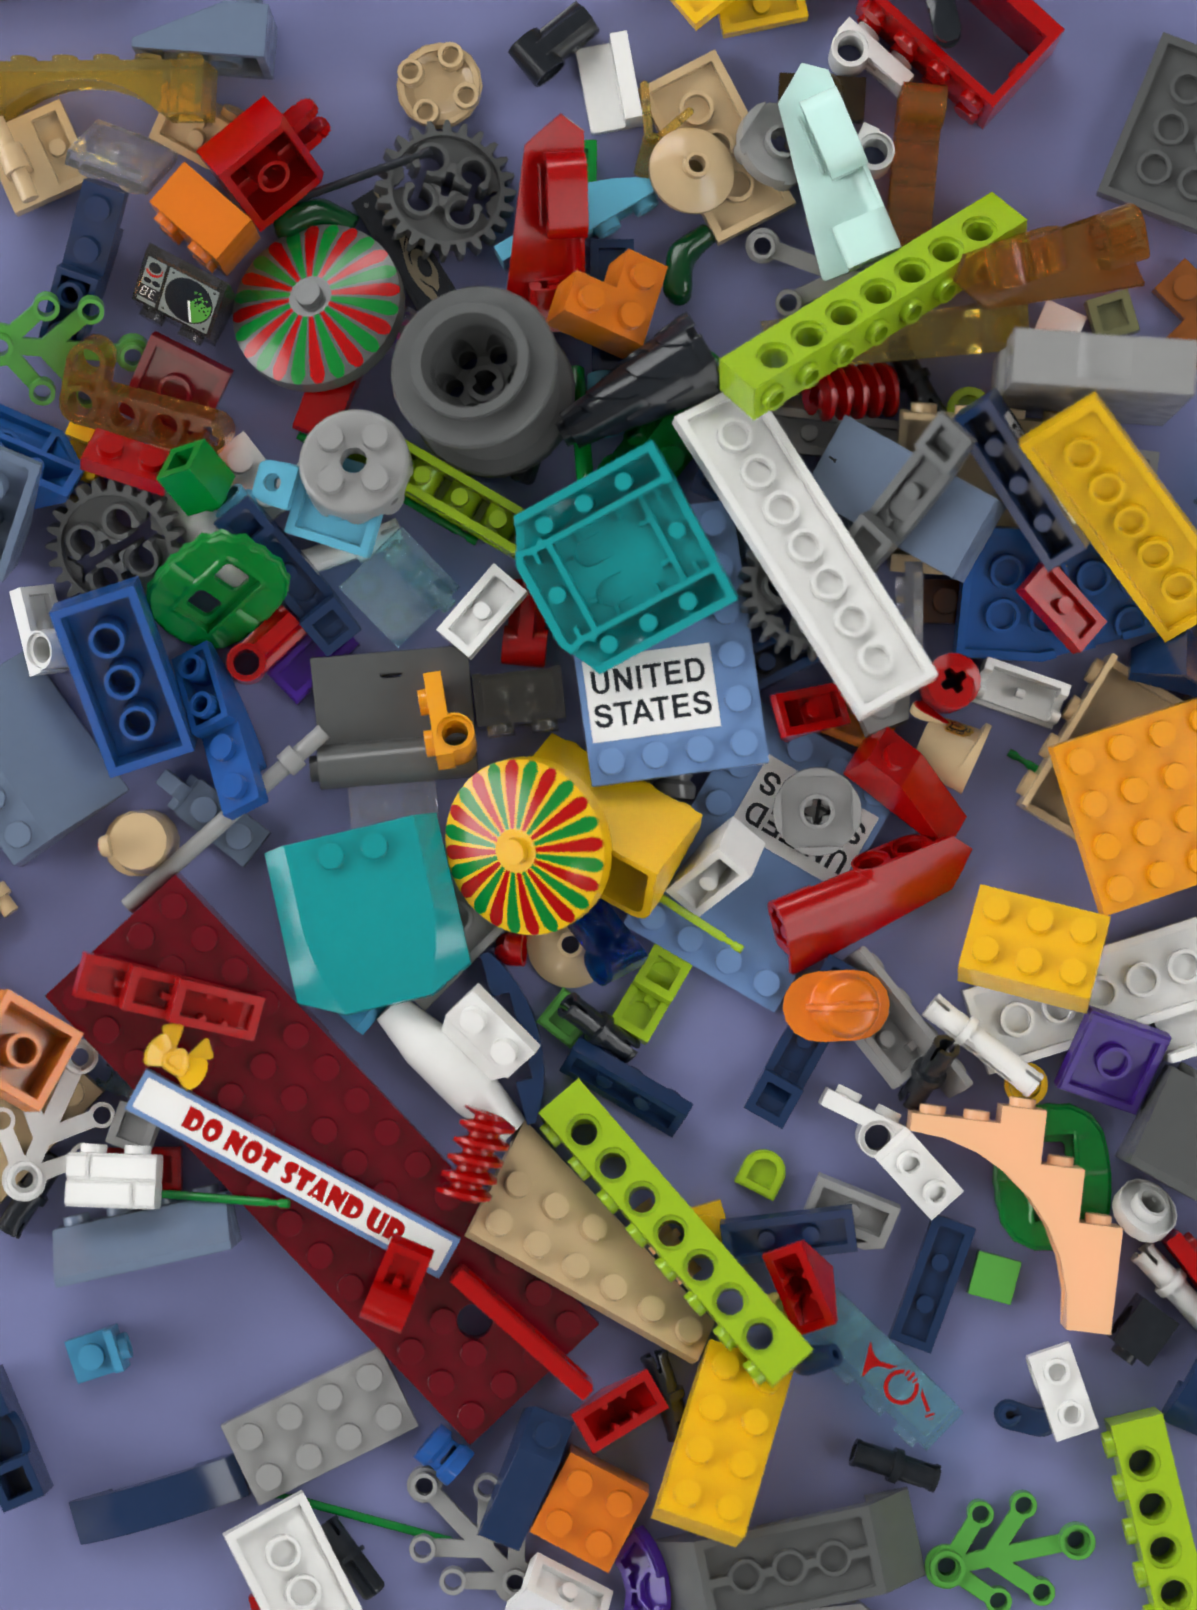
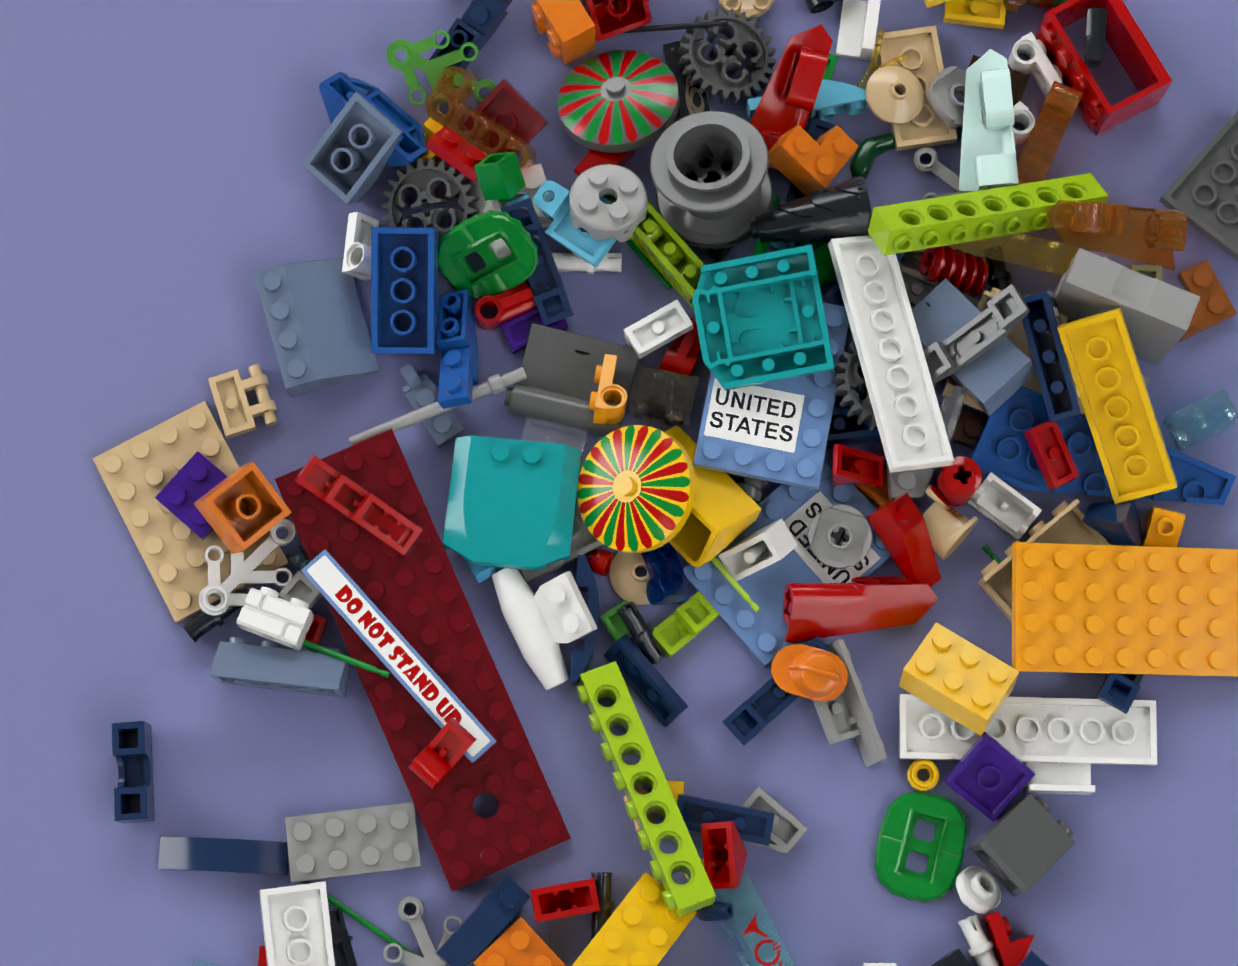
camera: 15 degrees right, 10 degrees down
(99, 1353) = (220, 740): dark azure bracket -> none
(139, 842) = (373, 404): tan hat -> none
(183, 296) = (532, 64): slope -> none
(187, 1067) = (353, 558): yellow piece -> none
(310, 214) = (635, 42): dark green arm -> none
(400, 587) = (608, 297): clear light blue hinge -> none
(434, 1450) = (427, 885): blue wheel -> none
(477, 1156) = (528, 686): red piece -> none
(522, 1331) = (516, 819): red tile -> none
(567, 1237) = (570, 769): tan wing -> none
(762, 1173) = (719, 774): lime tile -> none
(846, 1103) = (794, 744): white plate -> none
(918, 1173) = (828, 807): white plate -> none
(929, 1072) = (858, 740): black pin -> none
(931, 1283) = (812, 890): dark blue plate -> none
(982, 1045) = (902, 734): white pin -> none
(993, 1277) = (857, 902): bright green tile -> none
(1083, 1249) = (926, 899): light nougat arch -> none

